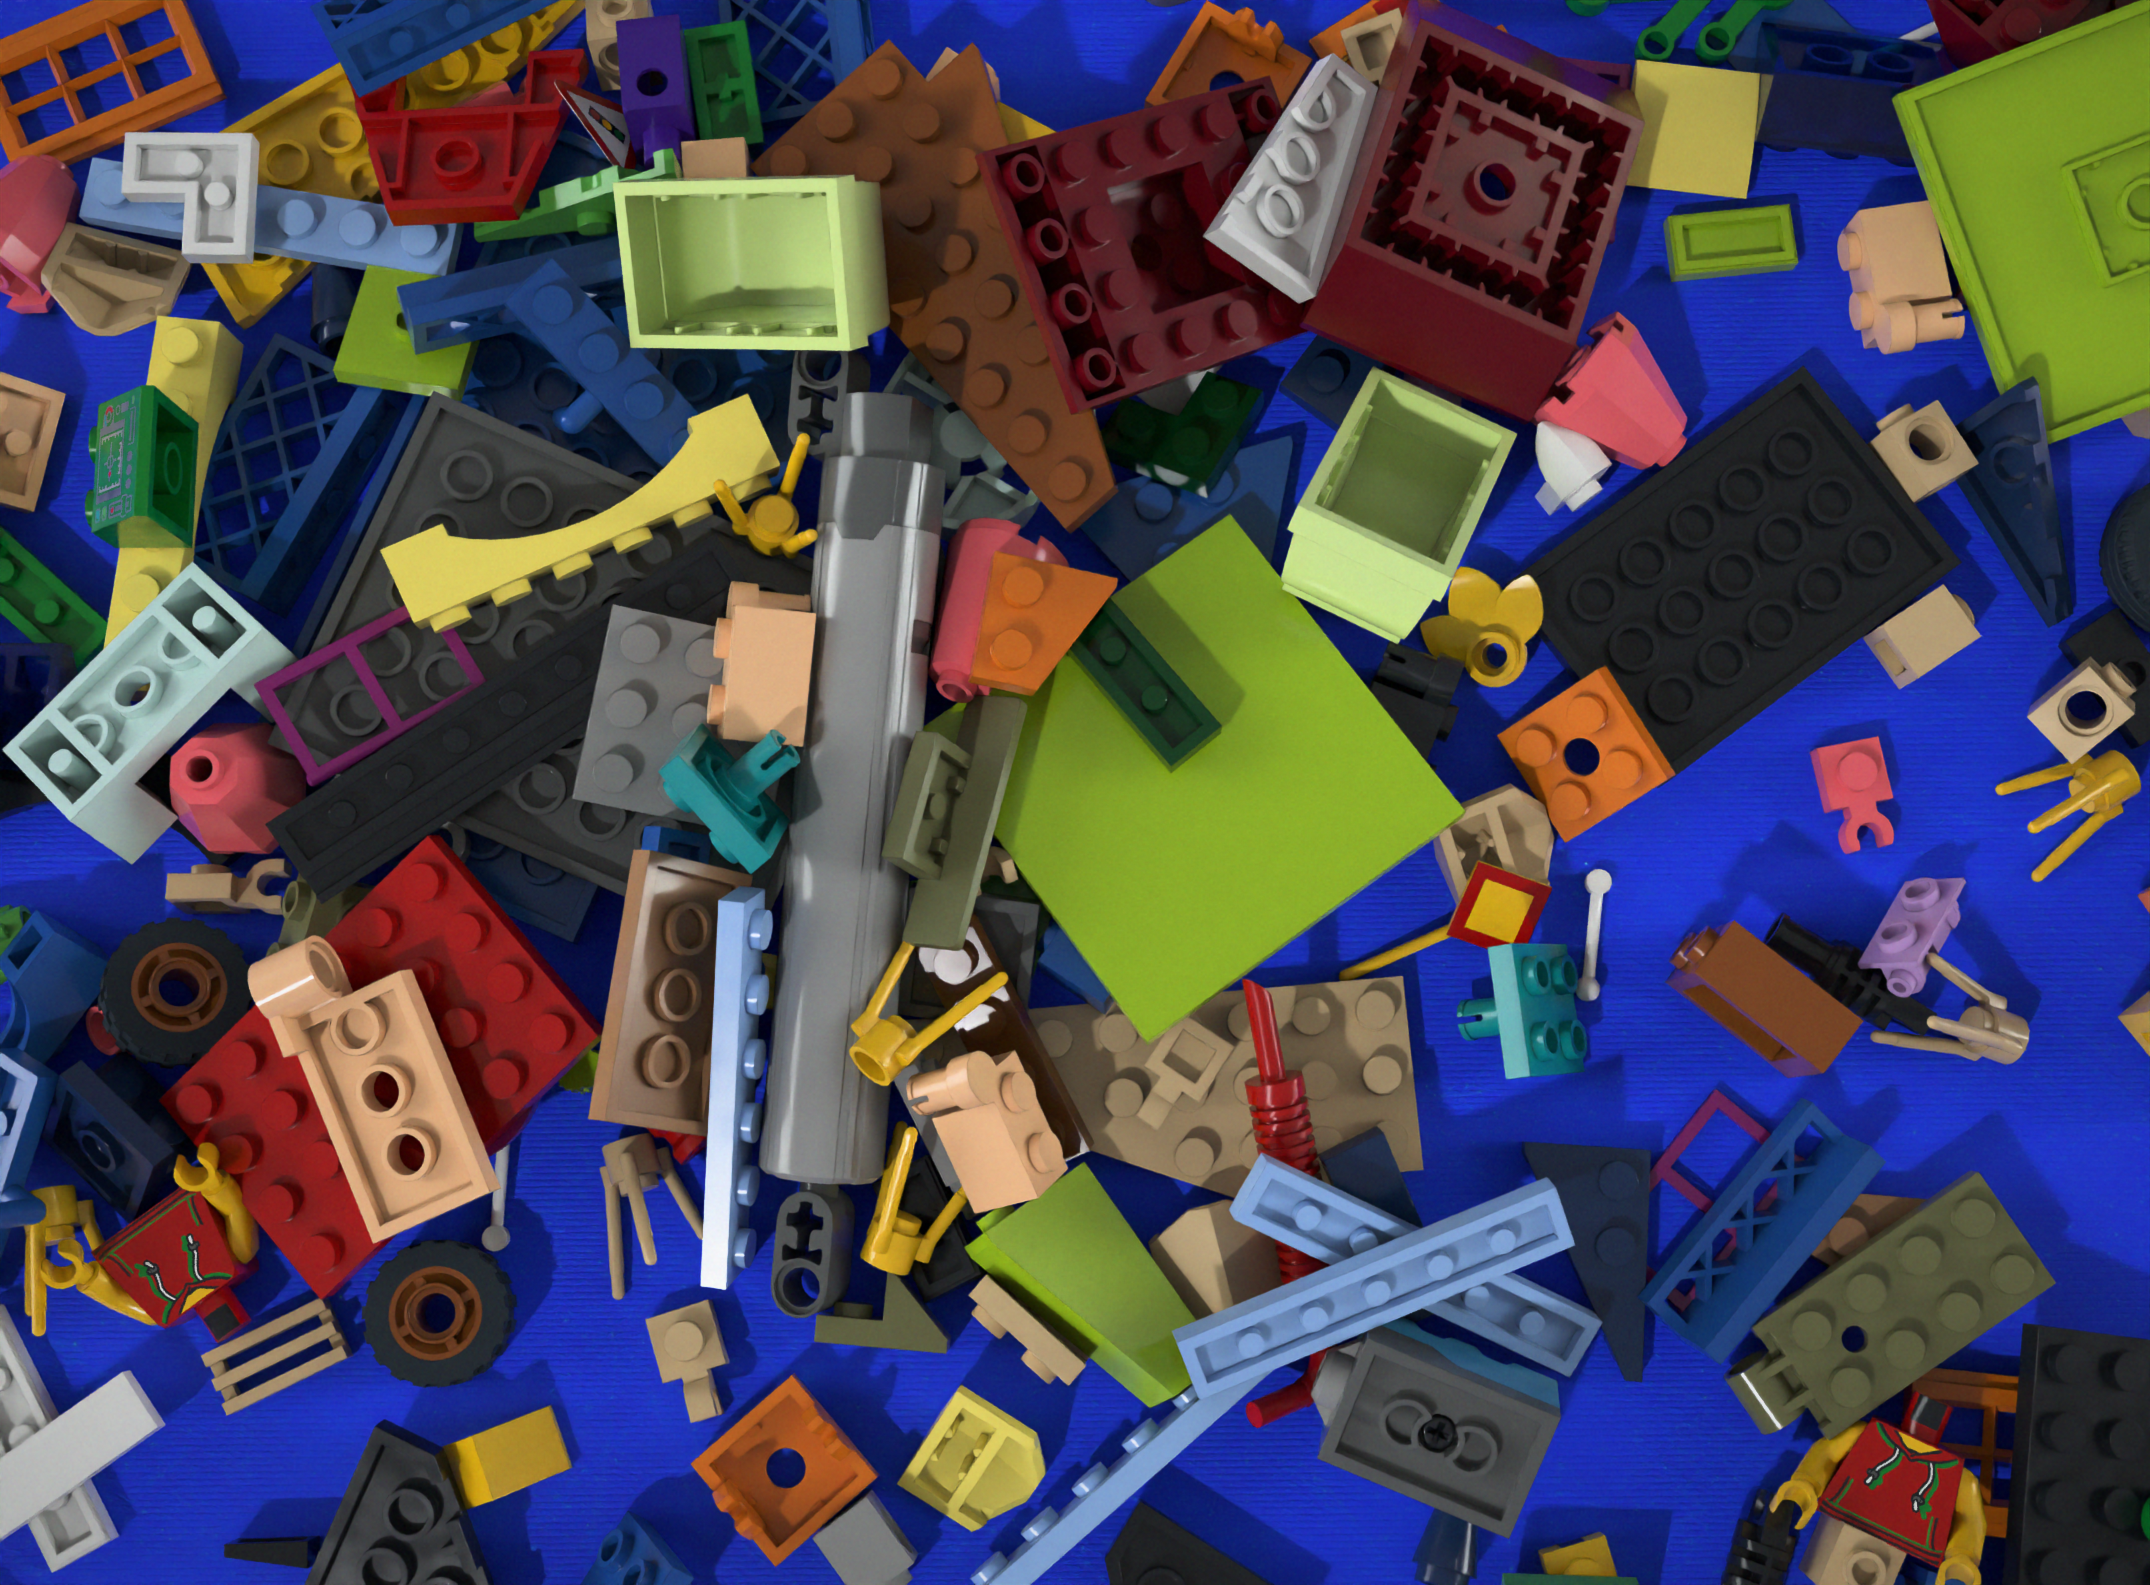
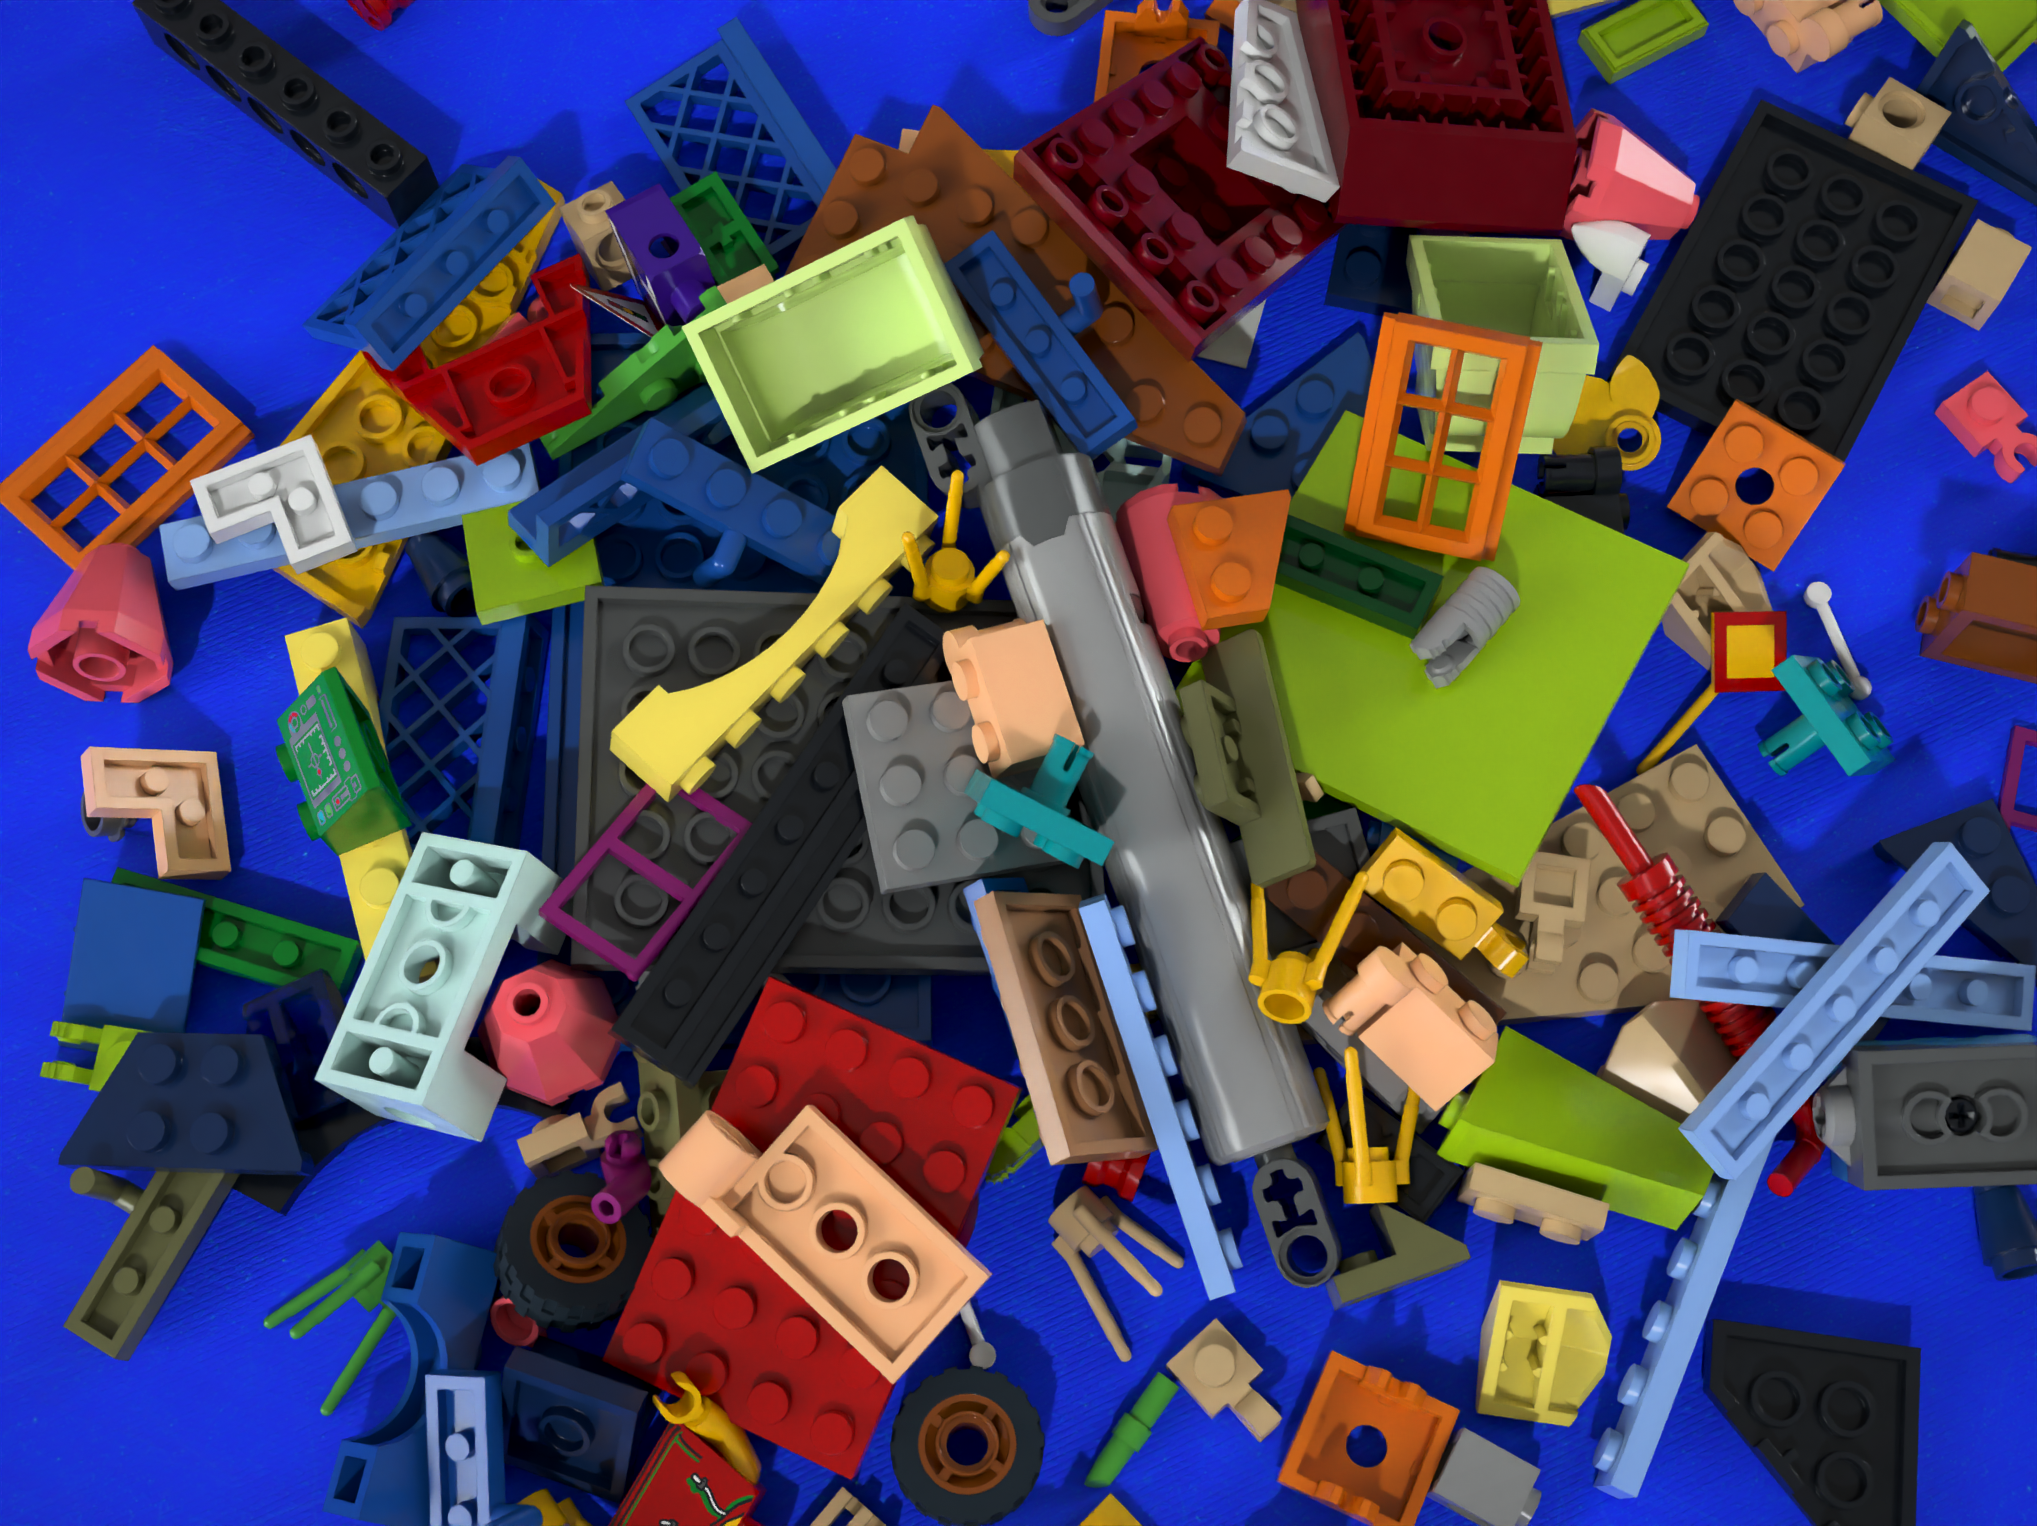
camera: 25 degrees left, 10 degrees down
(112, 279) = (225, 626): tan slope -> none
(248, 942) = (625, 1175): none -> magenta arm
(593, 1361) = (1131, 1431): none -> bright green piece
(953, 335) = (1044, 344): none -> blue plate
(1076, 1027) = (1441, 902): none -> yellow plate
(1189, 447) = (1283, 367): dark green plate -> none
(1216, 781) = (1464, 624): none -> light grey hinge
(1327, 623) = (1500, 445): none -> orange piece

